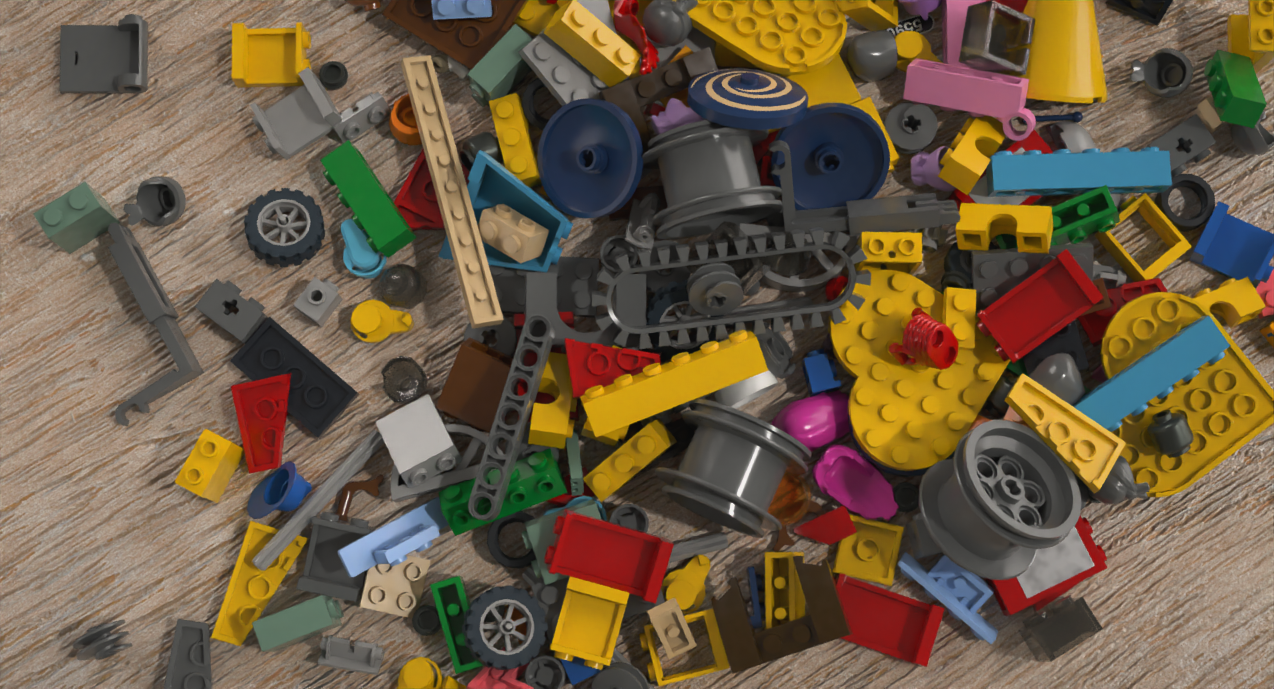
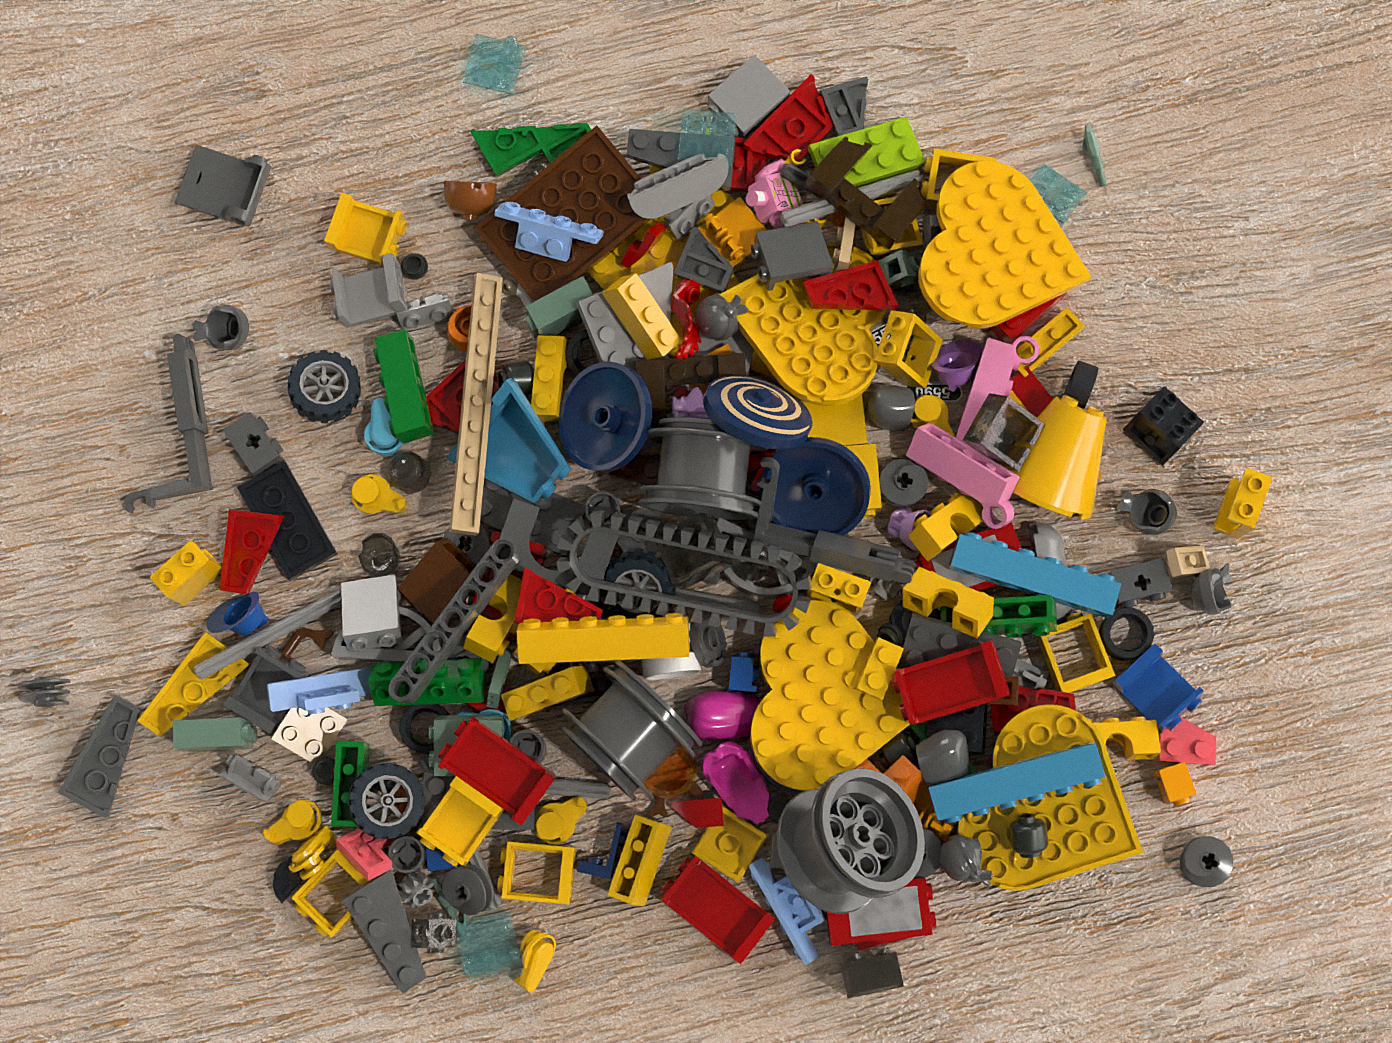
camera: 25 degrees right, 0 degrees up
(76, 217) = (149, 319): sand green brick -> none
(318, 300) = (331, 460): light grey brick -> none
(512, 233) = (516, 459): tan brick -> none
(640, 228) = (627, 493): light grey hinge -> none
(671, 628) = (528, 851): tan slope -> none
(714, 289) = (669, 569): dark grey piece -> none
(750, 649) = (661, 895): dark brown wedge -> none
(927, 341) = (838, 680): red piece -> none
(1071, 434) = (935, 805): yellow wing -> none
(1076, 117) = (1058, 523): dark blue hinge -> none
(1235, 88) = (1204, 547): green brick -> none

